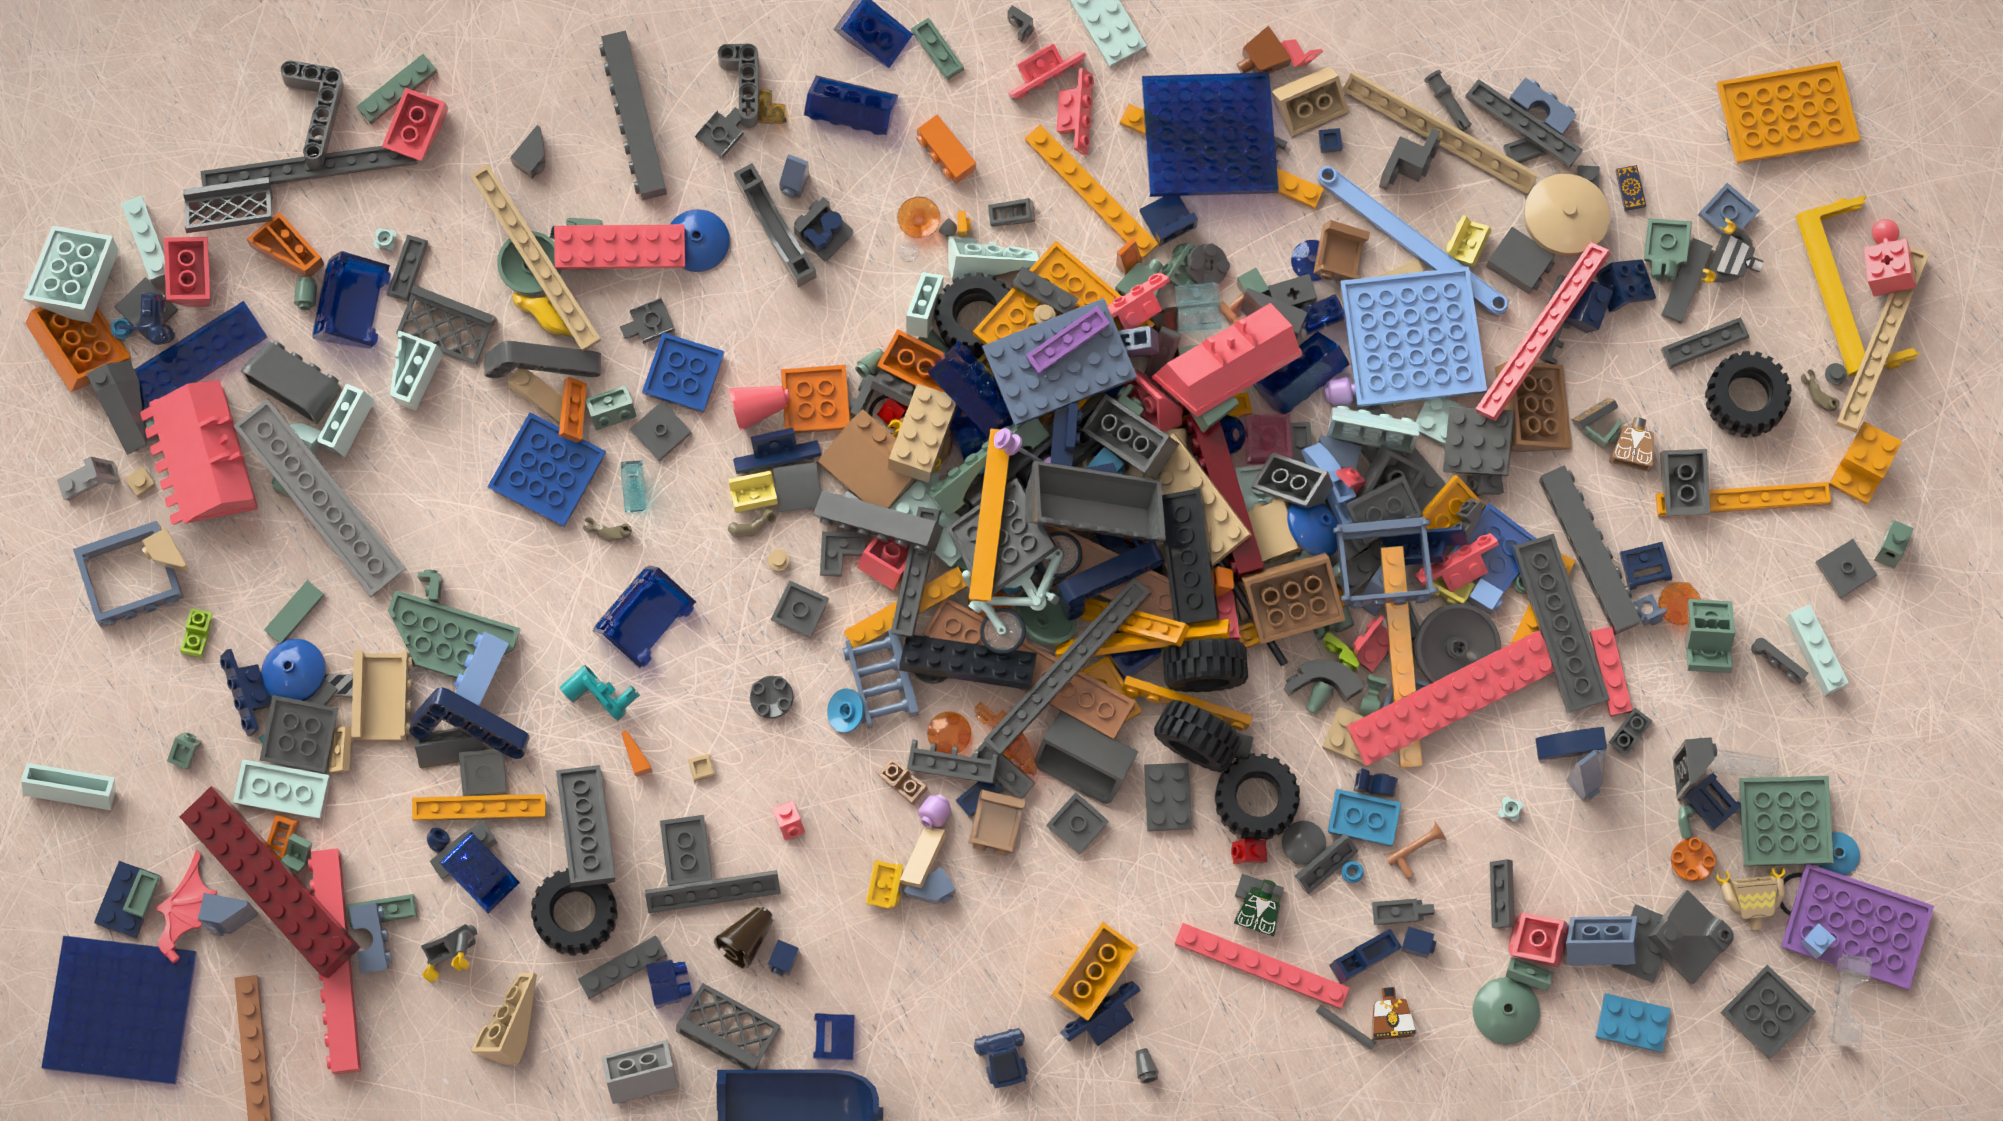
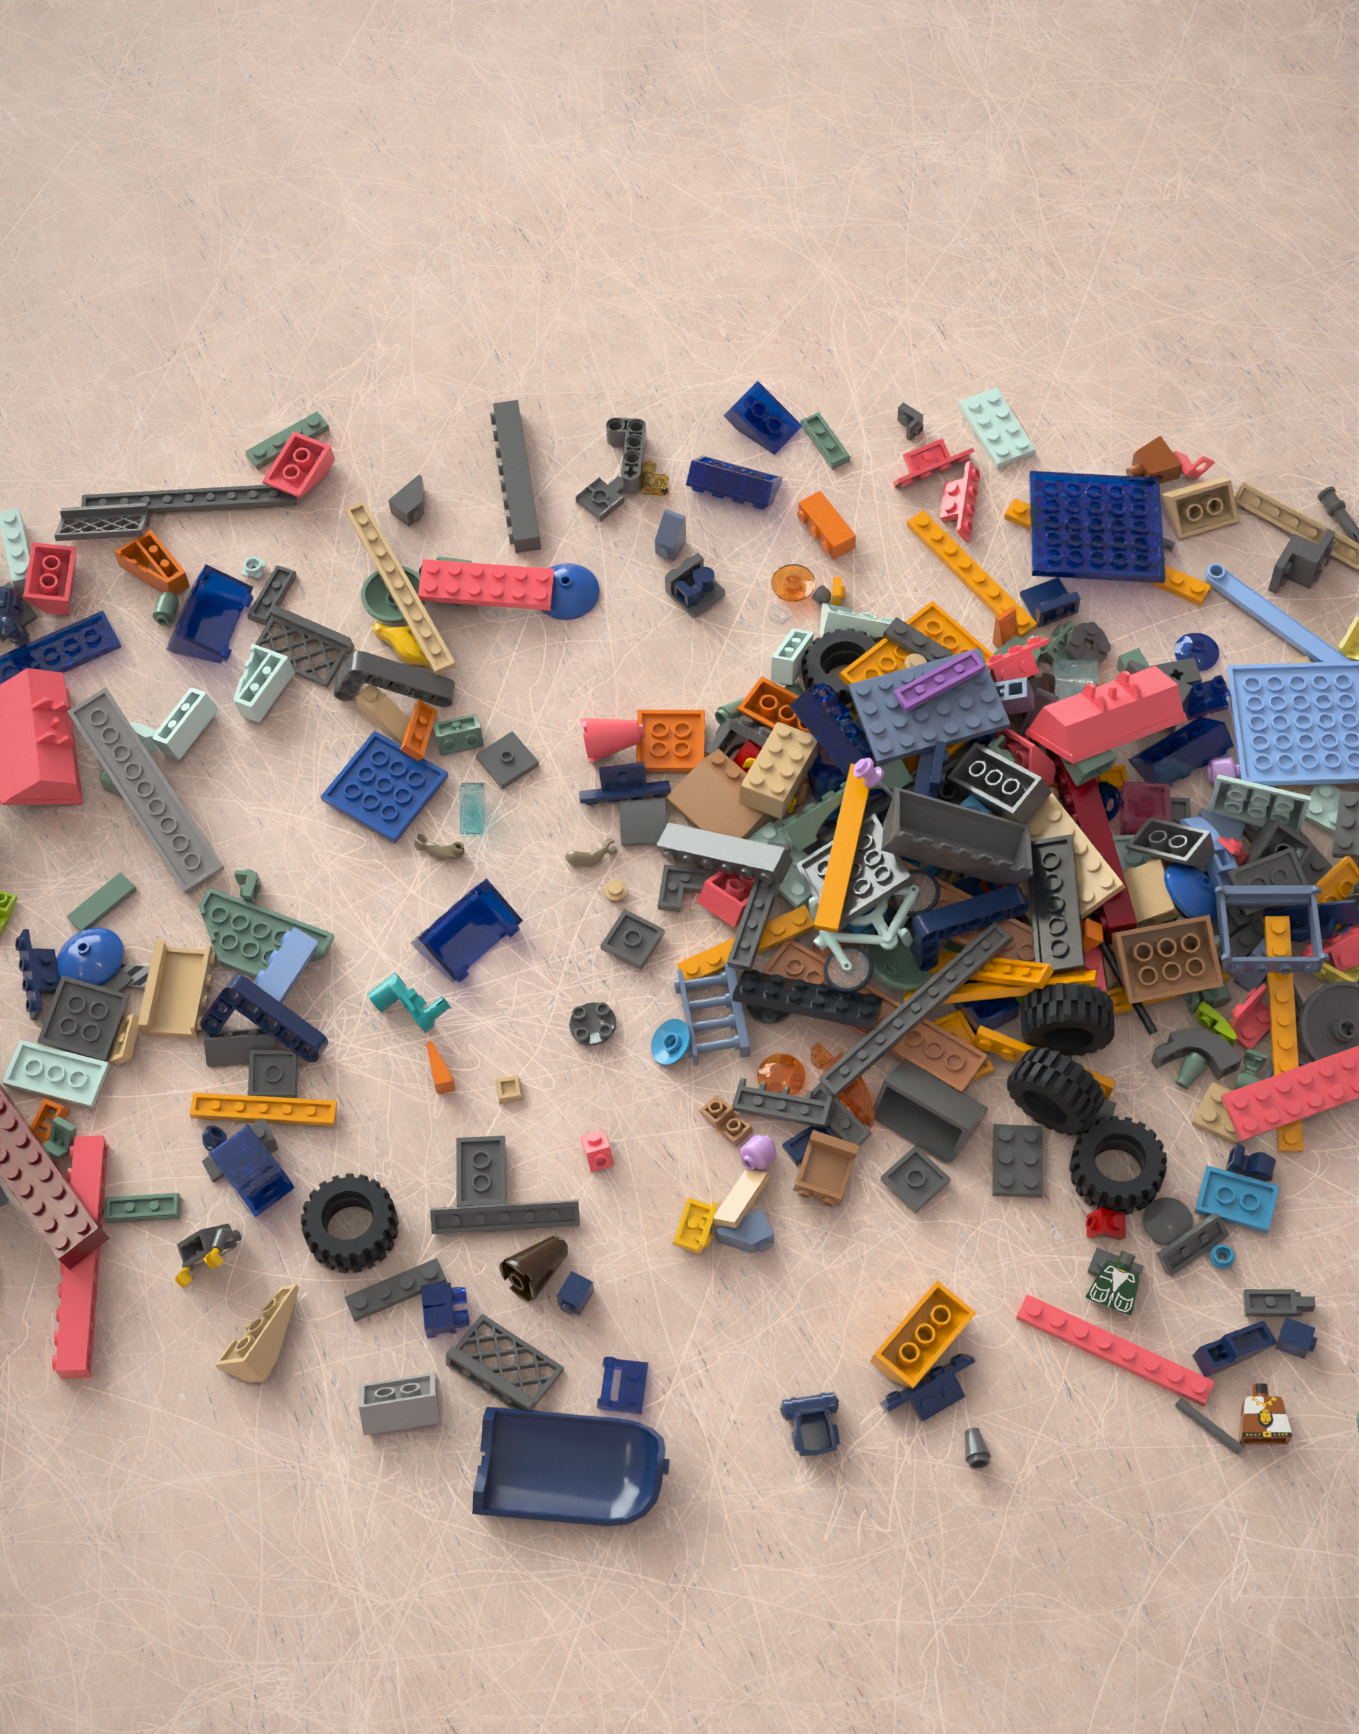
camera: 10 degrees right, 15 degrees down
(292, 381) = (136, 685): dark grey windscreen -> none
(321, 109) = (219, 435): dark grey beam -> none
(376, 956) = (125, 1253): sand blue arch -> none
(585, 826) = (373, 1133): dark grey plate -> none
(649, 321) = (509, 658): dark grey piece -> none
(683, 372) = (537, 707): blue plate -> none
(753, 491) = (595, 820): light yellow bracket -> none
(773, 224) = (660, 606): dark grey arch -> none
(1010, 205) = (894, 593): dark grey slope -> none
(1330, 140) = (1219, 543): dark blue plate -> none
(1339, 251) = (1226, 639): medium nougat panel -> none
(1399, 855) = (1317, 1222): nougat piece -> none

